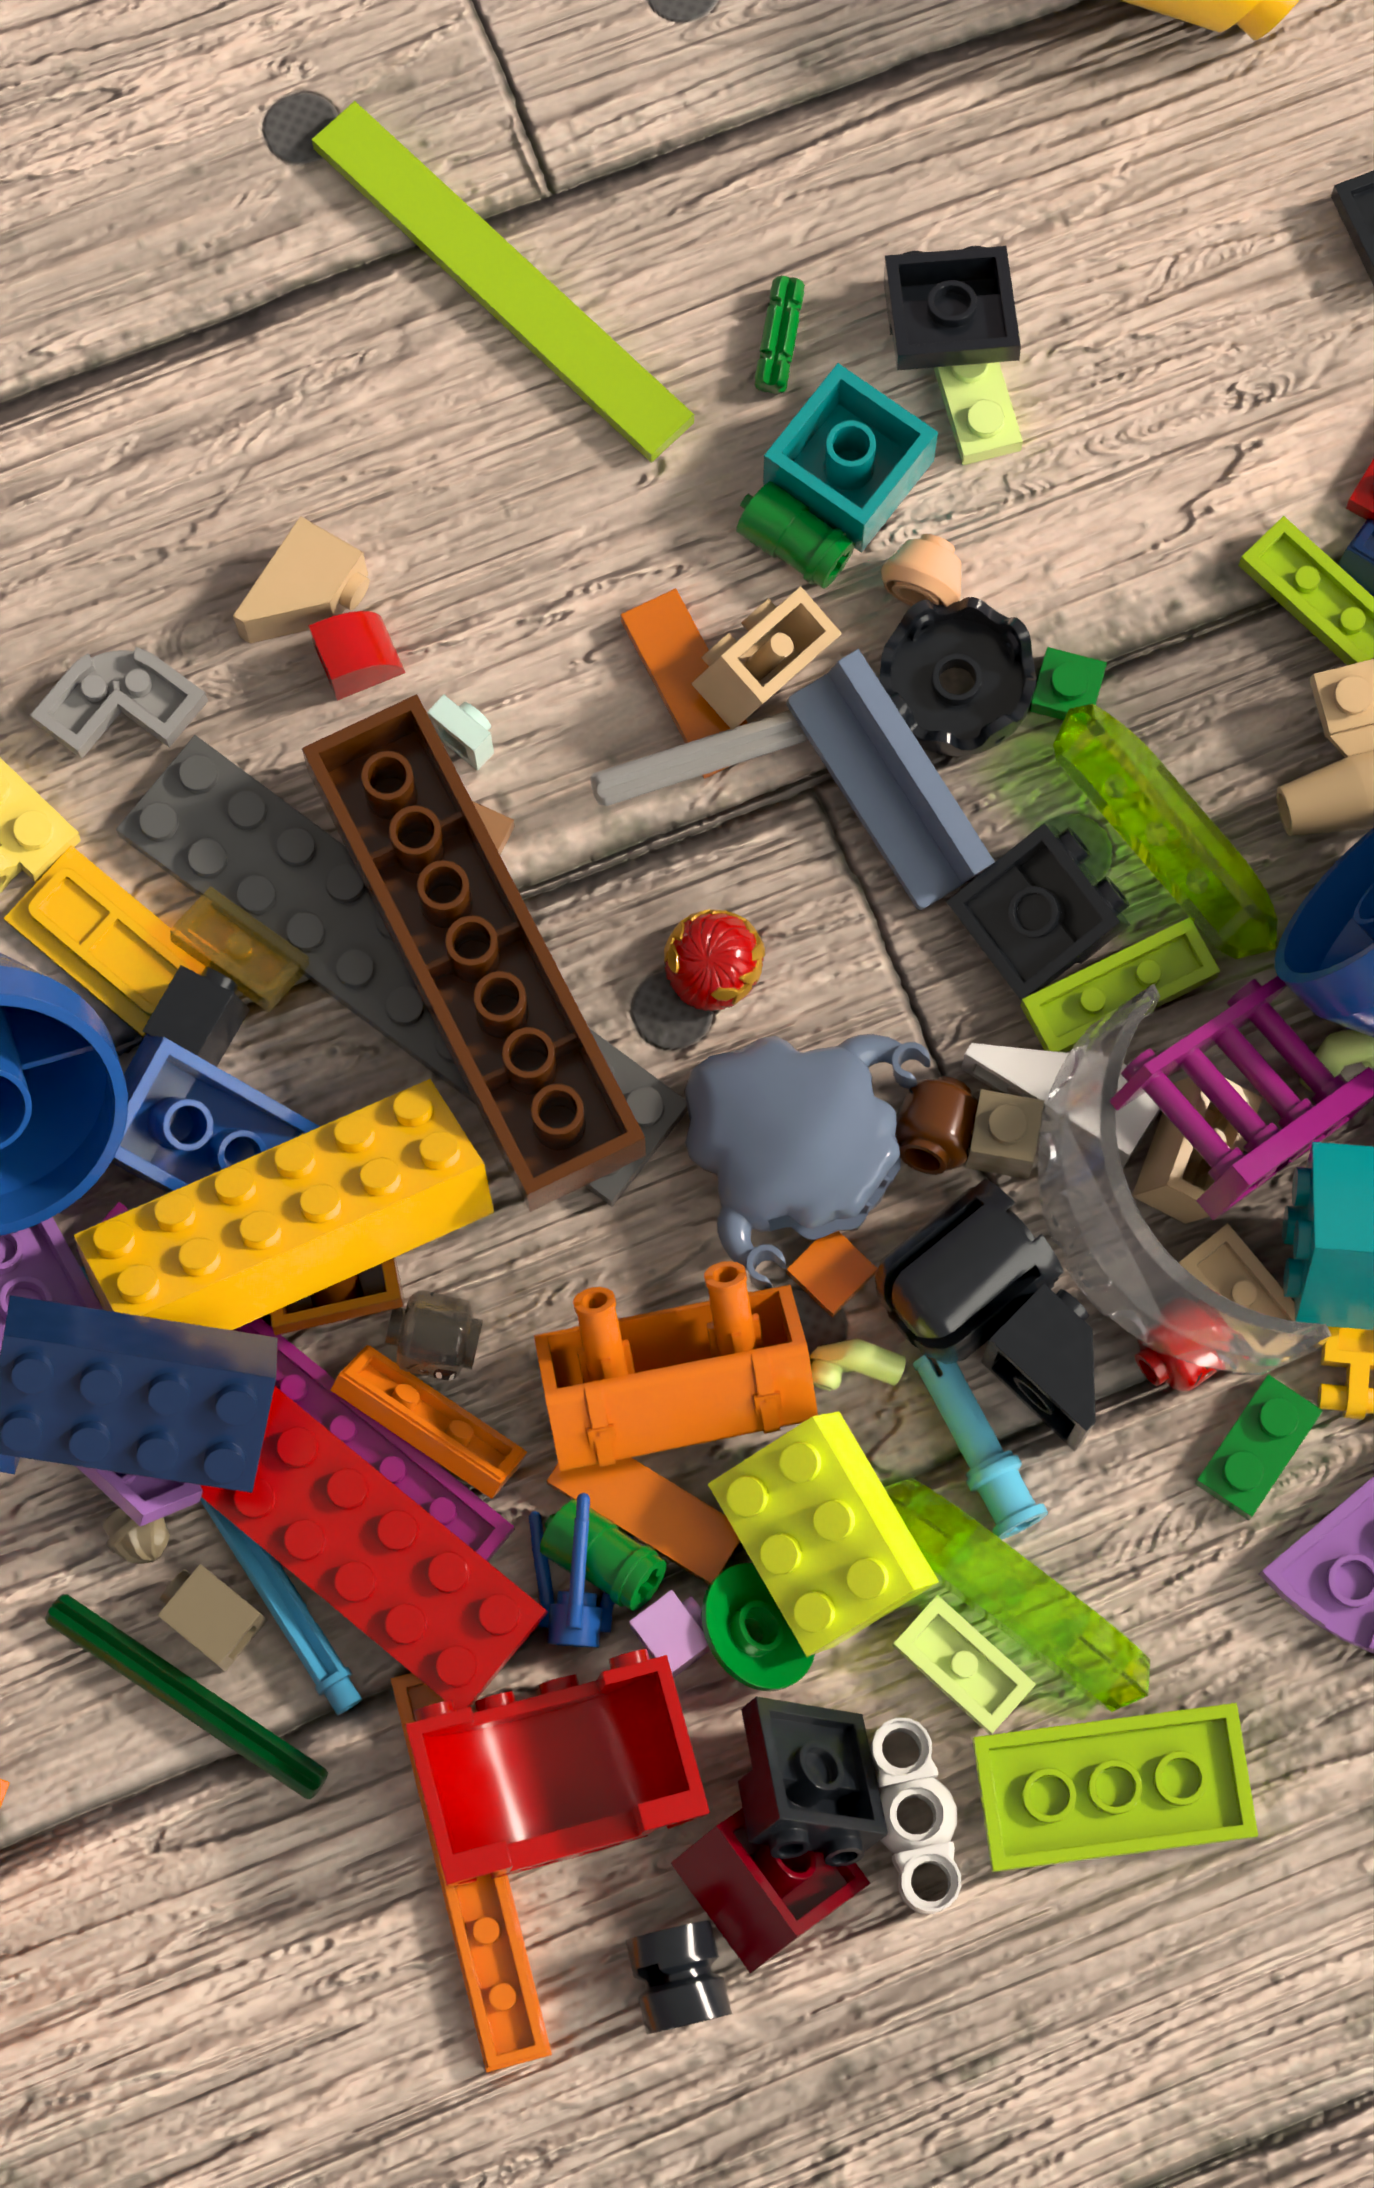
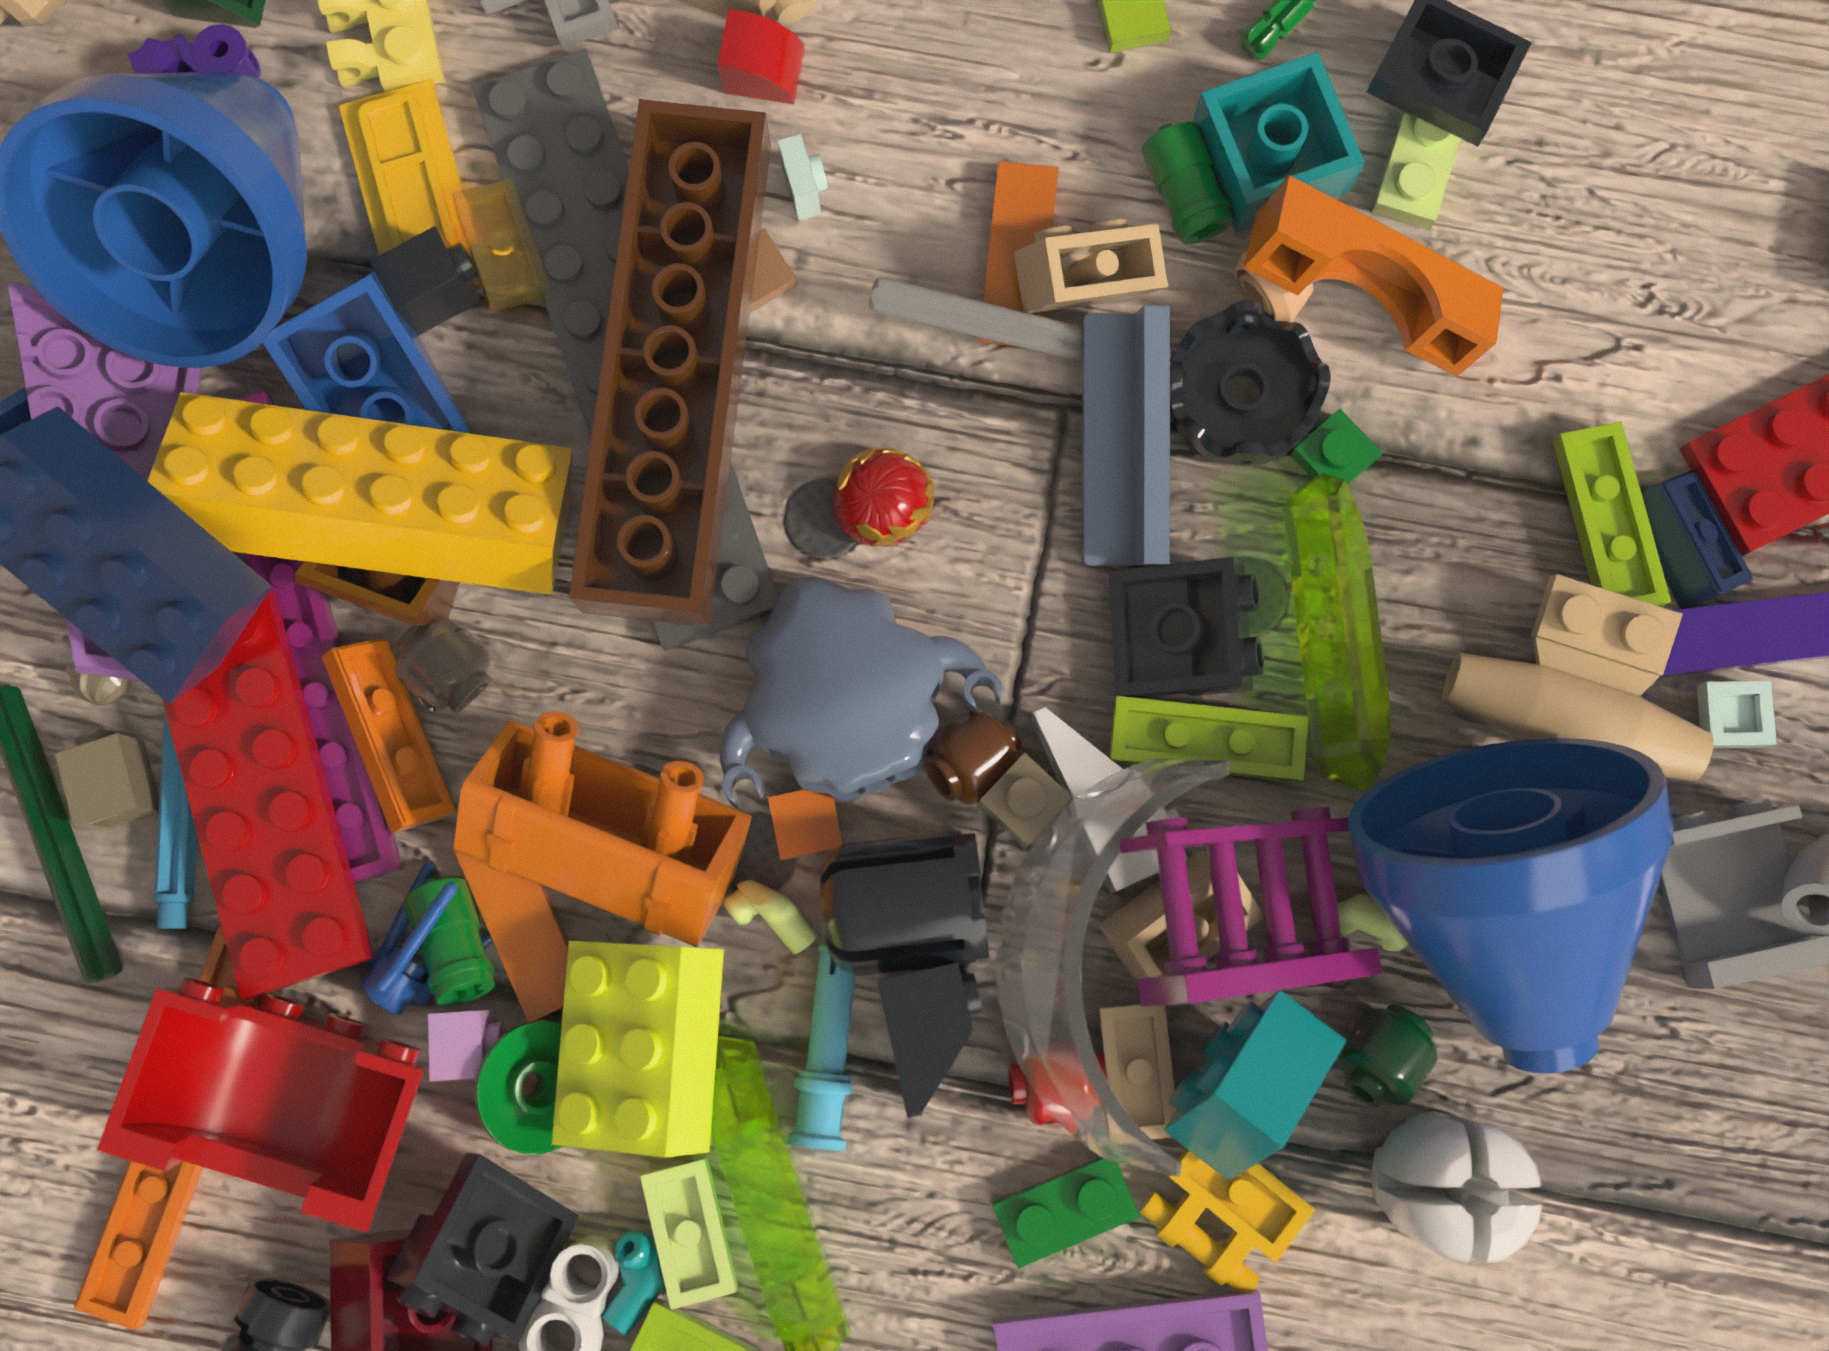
camera: 35 degrees right, 5 degrees up
(949, 1732) = (640, 1278): none -> teal arm
(1074, 512) = (1436, 303): none -> orange arch

